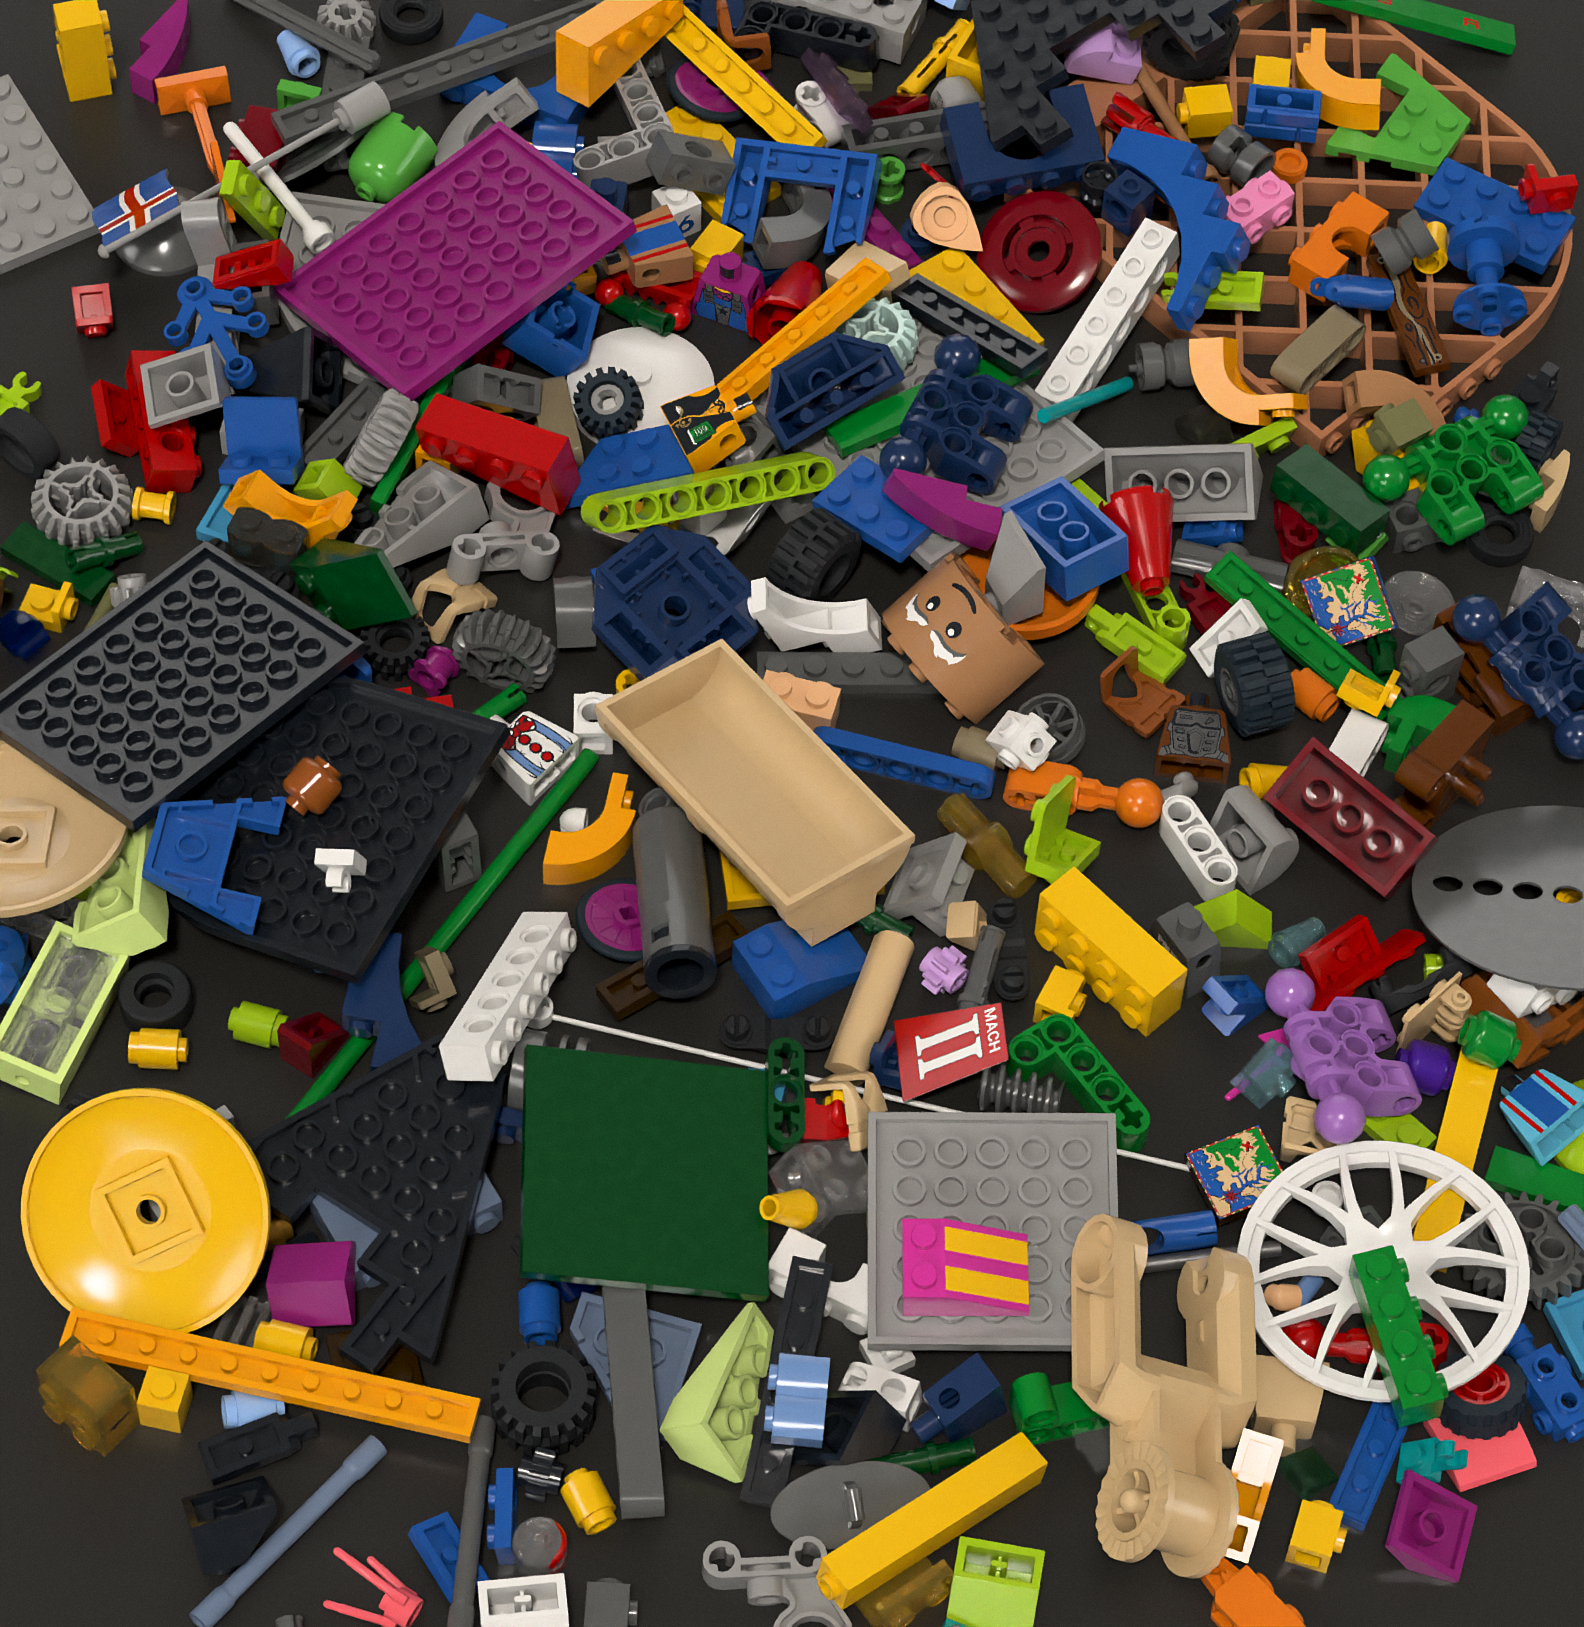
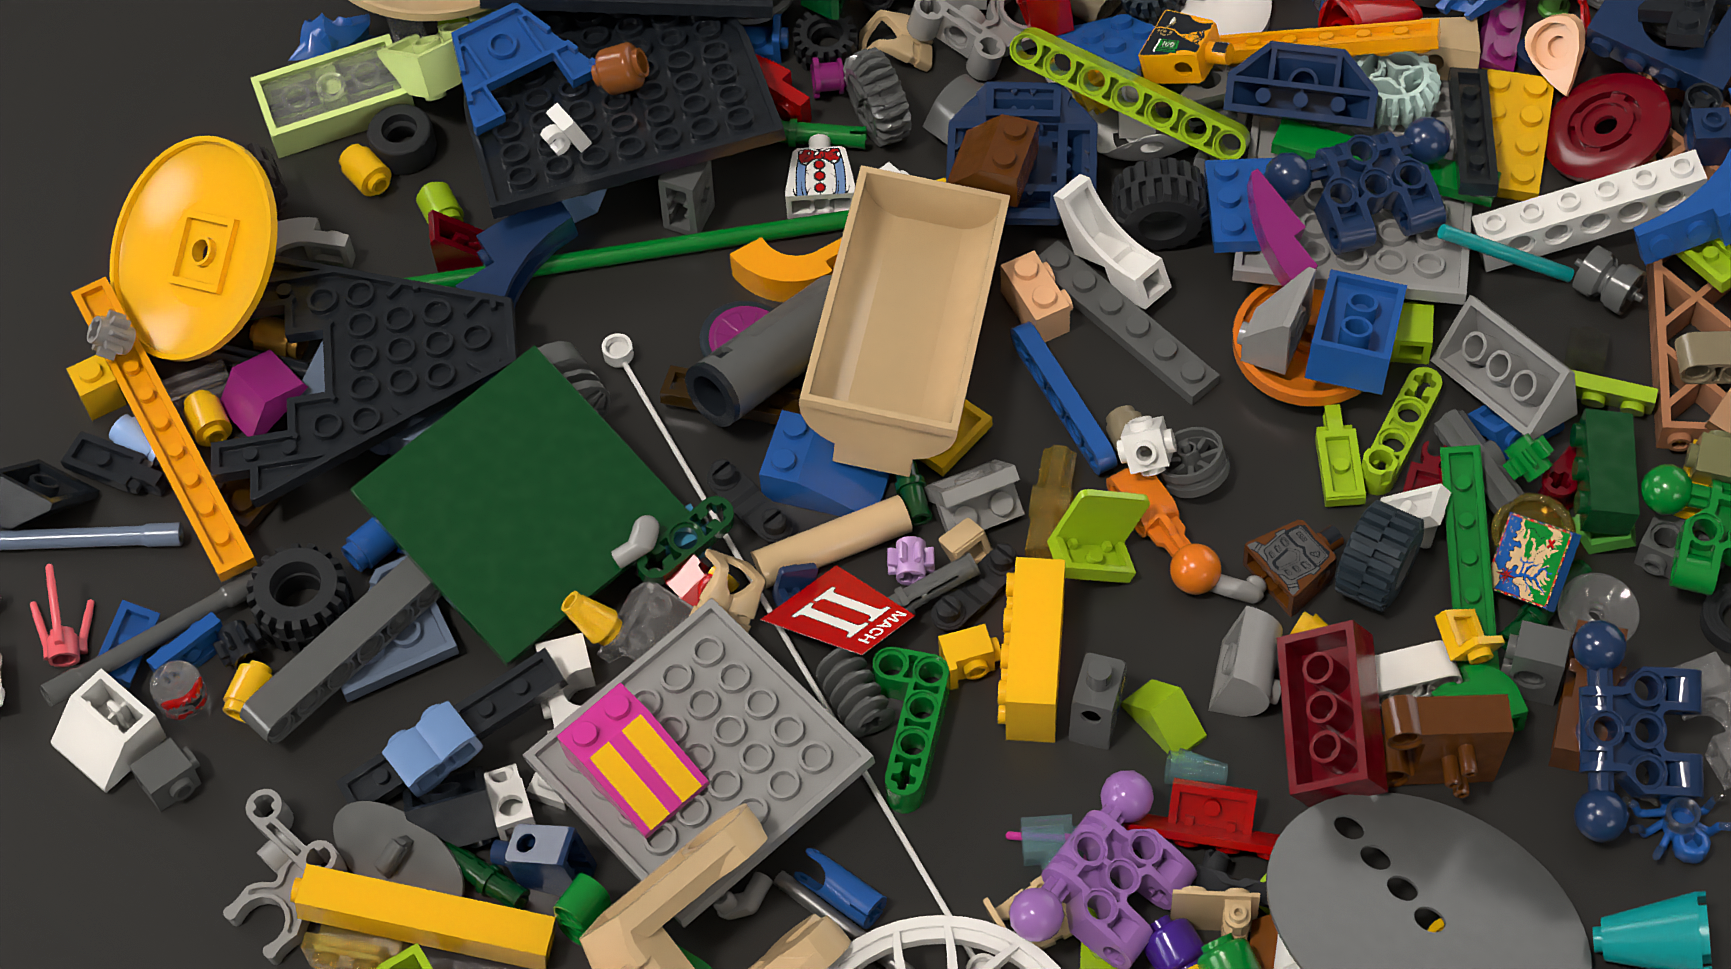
camera: 55 degrees right, 0 degrees up
(87, 1396) = (49, 338): clear yellow brick -> none
(156, 1339) = (111, 335): none -> light grey gear
(436, 970) = (580, 267): dark tan bracket -> none
(507, 996) = (582, 311): white brick -> none
(574, 819) = (796, 246): white hinge -> none
(671, 619) = (997, 156): none -> reddish brown slope
(717, 1405) = (383, 703): yellowish green wedge -> none
(767, 1120) = (641, 541): none -> light grey arm
(959, 640) = (1186, 339): medium nougat cylinder -> none
(1149, 527) = (1423, 379): red cone -> none
(1153, 699) = (1307, 506): dark orange piece -> none
(1197, 833) = (1205, 624): white beam -> none
(1219, 381) = (1630, 330): light orange arch -> none
(1233, 1002) = (1087, 764): blue slope -> none
(1233, 1172) = (934, 884): tile -> none
(1268, 533) = (1528, 457): none -> green gear
(1314, 695) = (1427, 599): orange brick -> none

